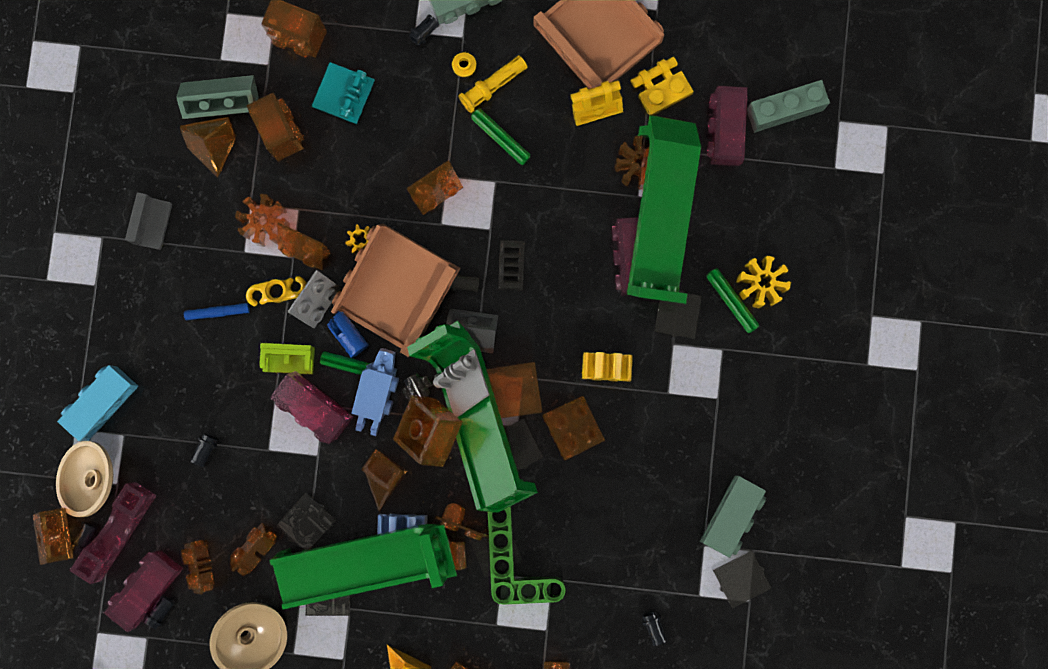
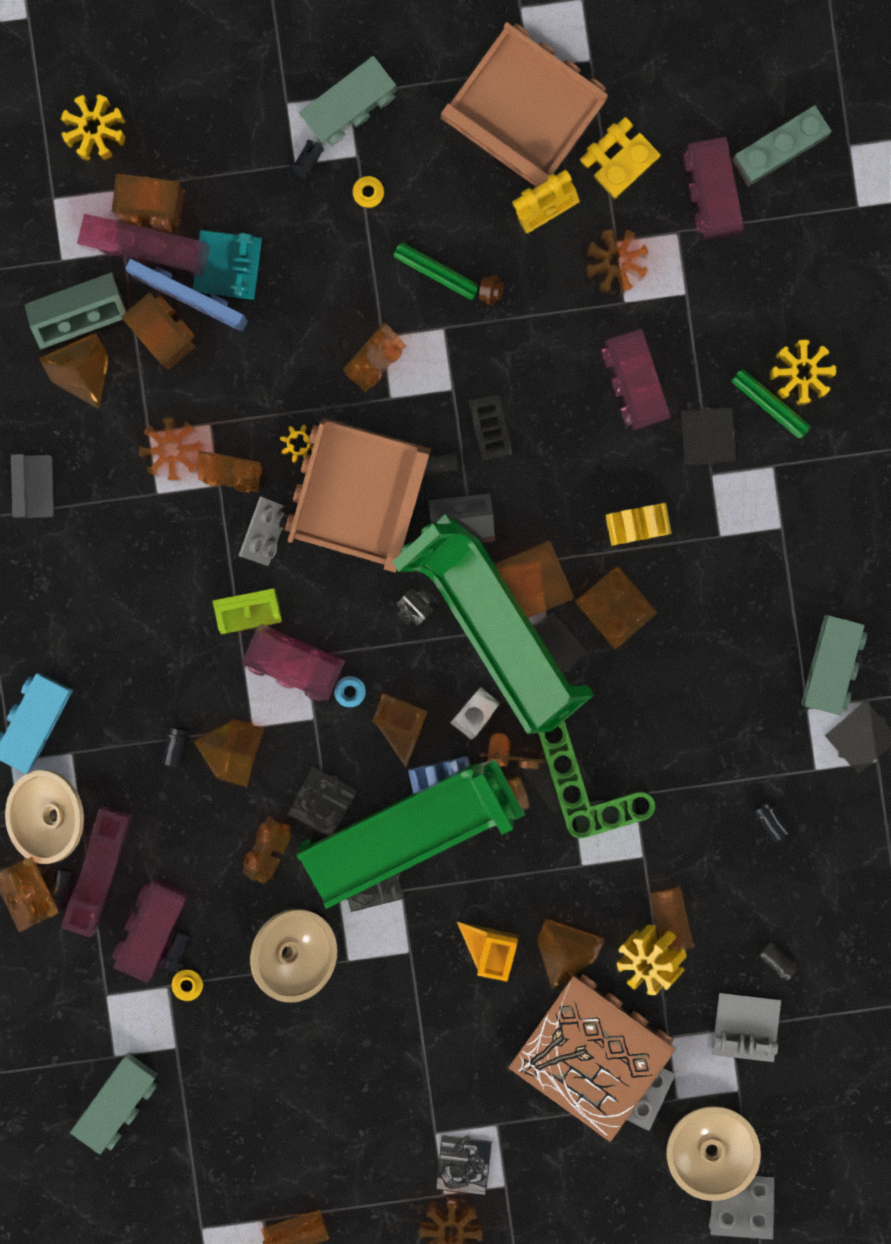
camera: 20 degrees left, 5 degrees up
(168, 641) = (192, 976): none -> yellow plate
(196, 581) = (210, 900): clear orange hinge -> none
(217, 311) = (144, 575): blue piece -> none
(246, 464) = (232, 750): none -> clear orange slope
(265, 287) = (226, 532): yellow piece -> none
(282, 60) = (143, 245): none -> clear pink brick
(289, 91) = (213, 306): none -> medium blue plate
(342, 441) = (342, 698): none -> medium azure plate
(343, 363) = (333, 599): green axle -> none
(347, 334) = (312, 563): blue hinge -> none
(375, 390) = (365, 622): medium blue hinge -> none
(427, 431) = (442, 655): clear orange brick -> none
(443, 482) = (475, 713): none -> white leg
(463, 383) = (471, 588): light grey hinge -> none
(484, 89) = (401, 218): yellow pin -> none
(538, 160) = (491, 289): none -> reddish brown plate
(664, 209) = (661, 315): green panel -> none

